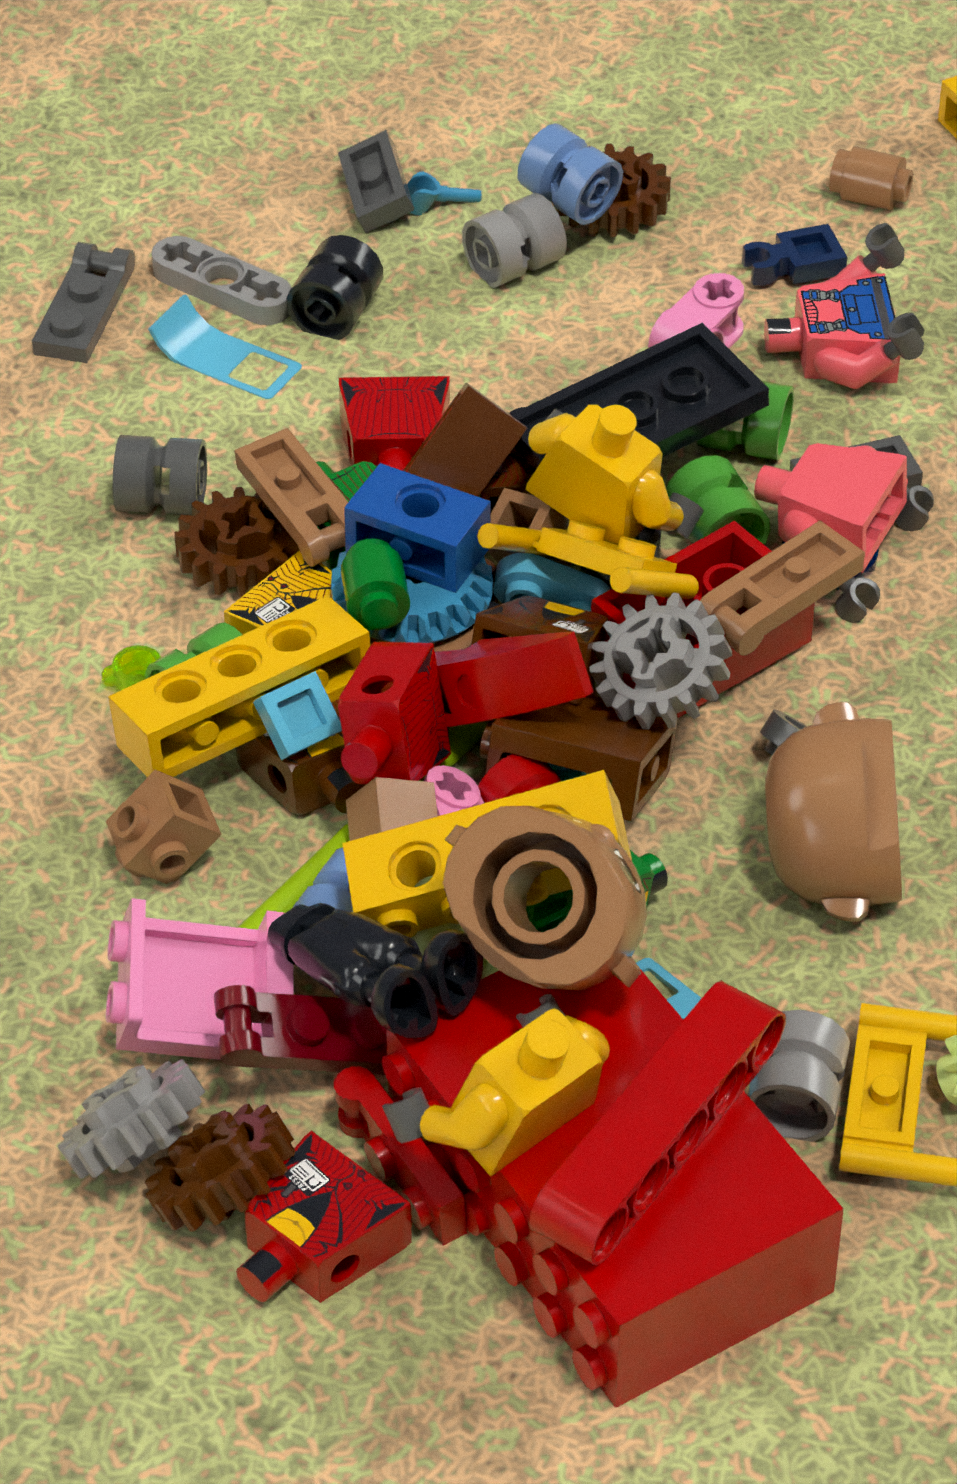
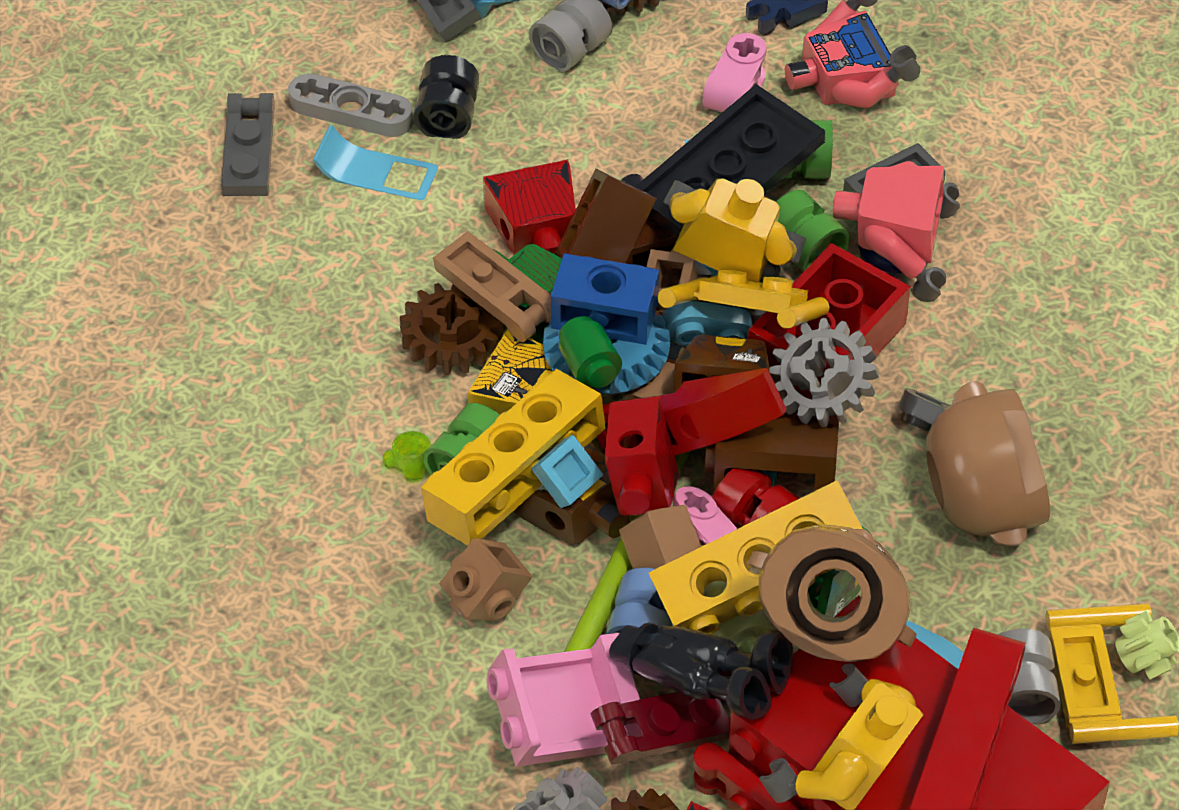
camera: 15 degrees left, 5 degrees up
(139, 474) = (353, 288): dark grey wheel -> none
(782, 584) = (891, 290): medium nougat plate -> none

